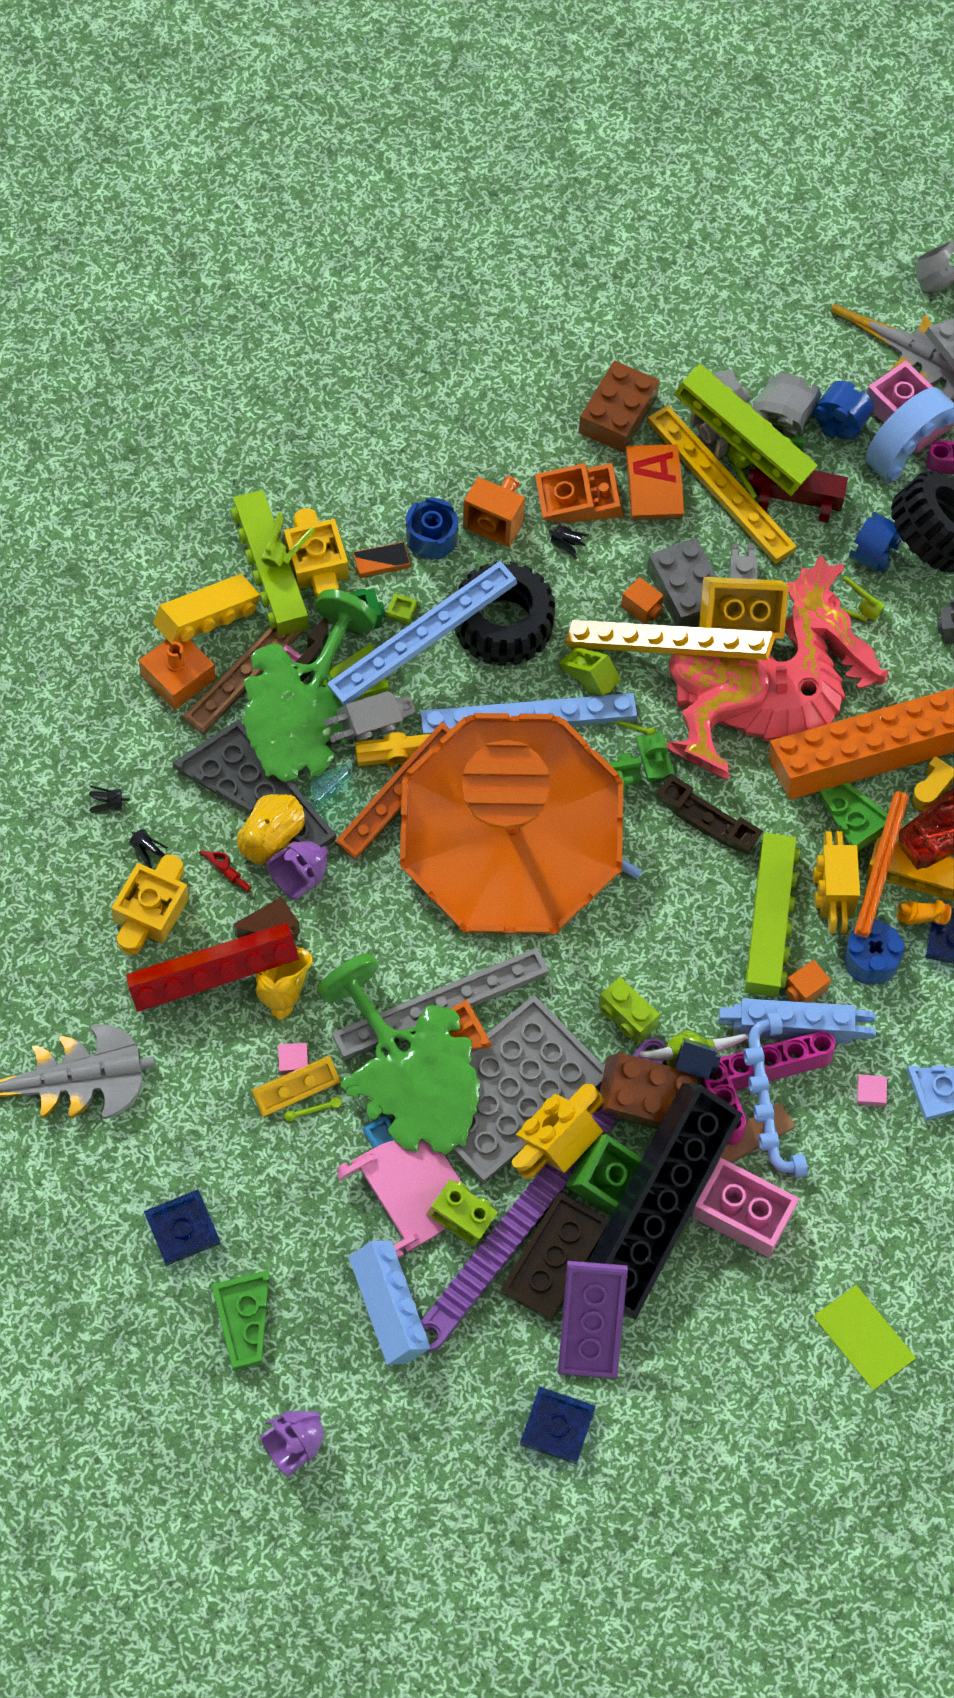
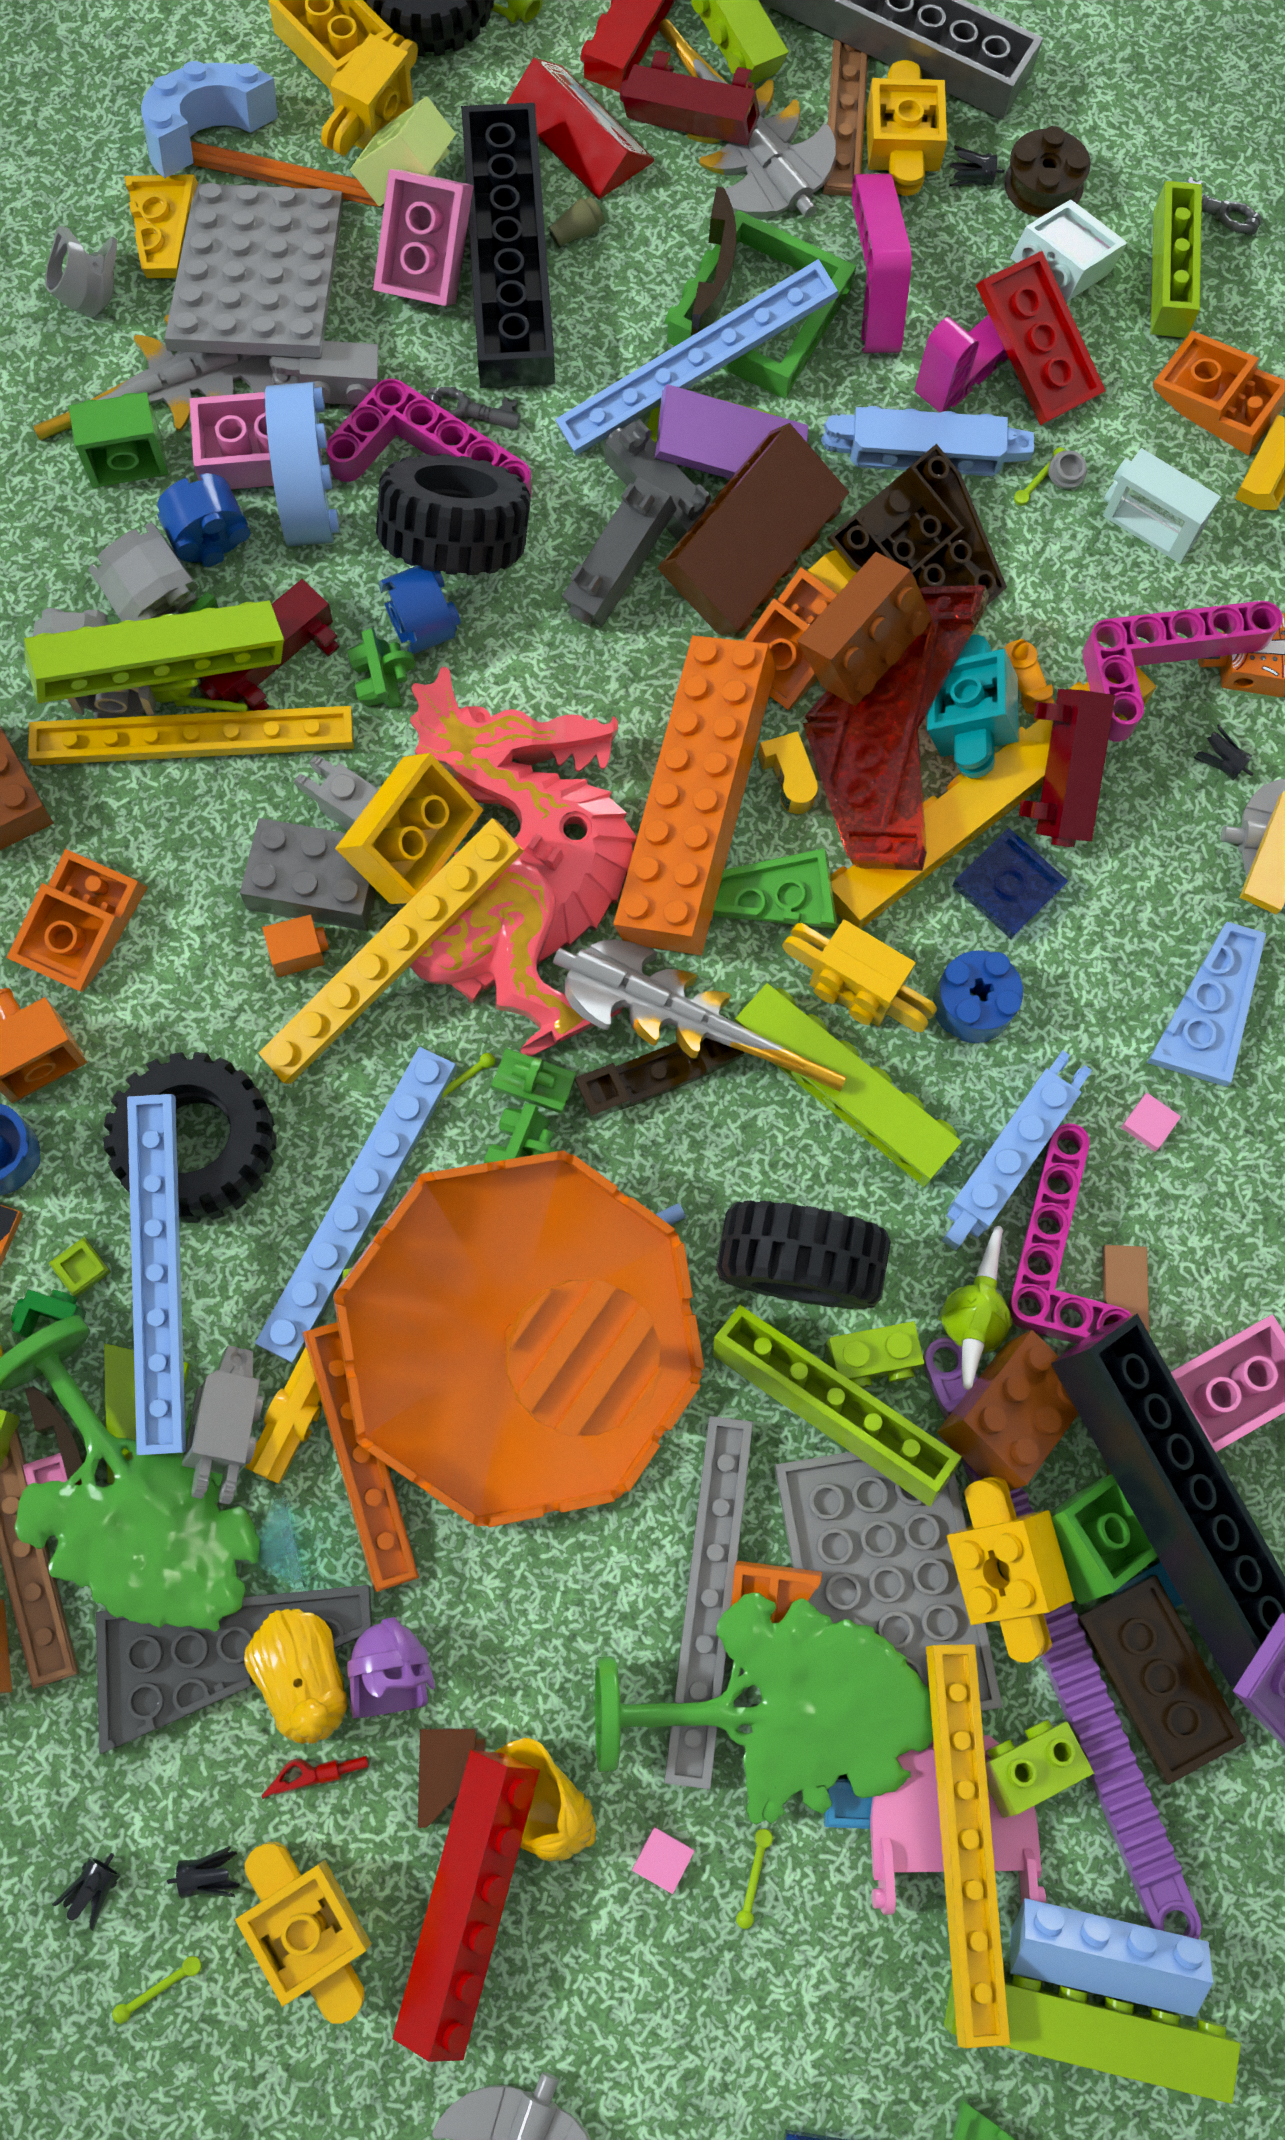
camera: 60 degrees left, 10 degrees up
(99, 868) = (190, 1967): none -> lime hinge
(295, 1086) = (709, 1885): yellow tile -> none
(344, 1318) = (1117, 2039): none -> lime brick
(400, 1189) = (967, 1847): none -> yellow plate
(564, 536) = (123, 979): black piece -> none
(585, 1000) = (835, 1405): none -> lime brick
(592, 670) = (351, 1078): lime arch -> none
(653, 930) = (803, 1254): none -> black tyre
(654, 482) = (130, 814): orange slope -> none
(697, 1059) = (1016, 1319): dark blue brick -> none
(743, 761) = (612, 977): none -> light grey animal
(764, 1111) = (1089, 1259): light blue bar -> none
(807, 983) = (970, 1104): orange brick -> none
(833, 546) = (387, 669): none -> bright green hips
(856, 344) = (118, 439): none -> bright green brick
(870, 606) = (495, 678): lime plant -> none
(881, 864) = (883, 907): orange axle -> none
(916, 913) = (955, 904): light orange piece -> none

